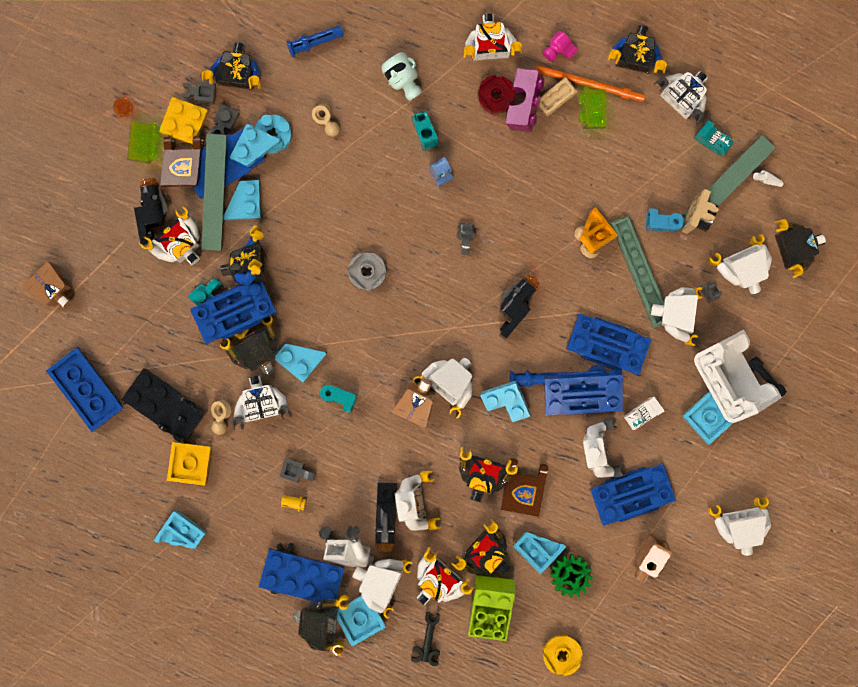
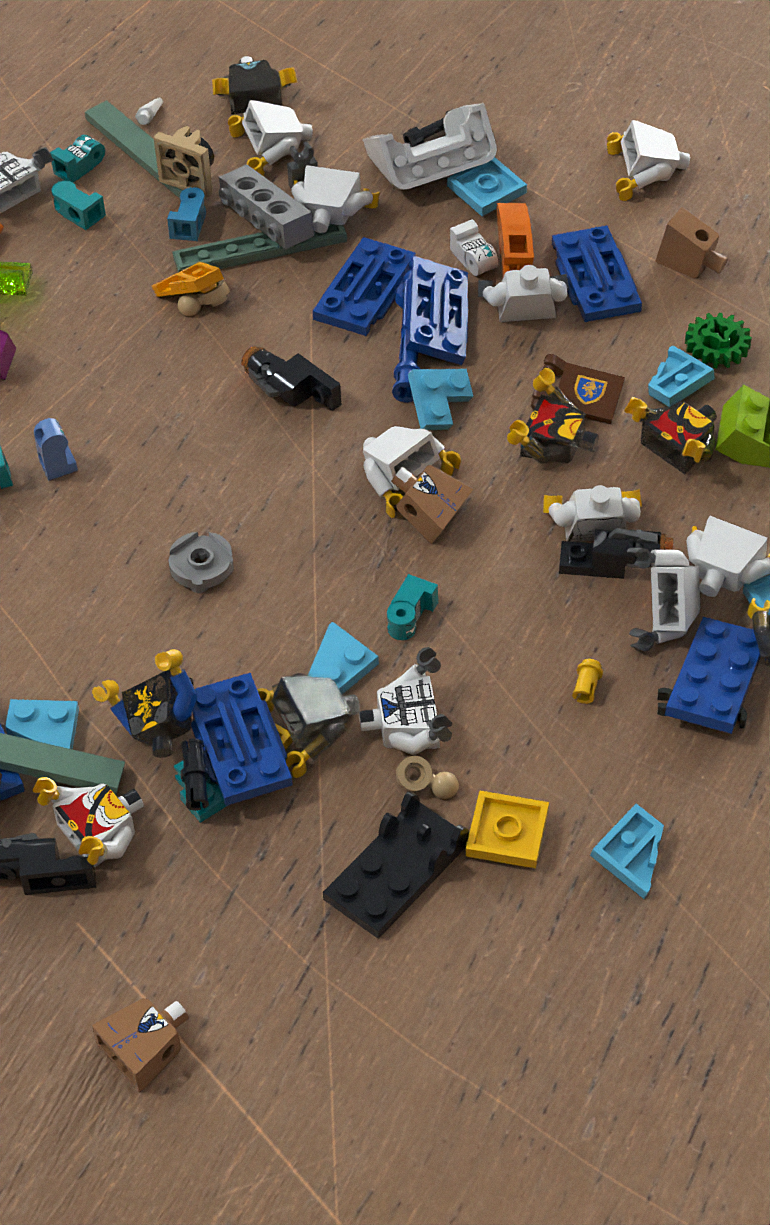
camera: 80 degrees left, 35 degrees down
(85, 389) = (351, 990): blue plate -> none
(204, 290) = (194, 774): none -> black pin
(294, 471) = (532, 675): dark grey plate -> none
(439, 580) = (724, 490): torso -> none
(466, 234) = (170, 434): dark grey piece -> none
(647, 440) = (514, 236): none -> orange slope
(670, 140) = (77, 205): none -> teal leg
(692, 255) = (266, 206): none -> light grey brick

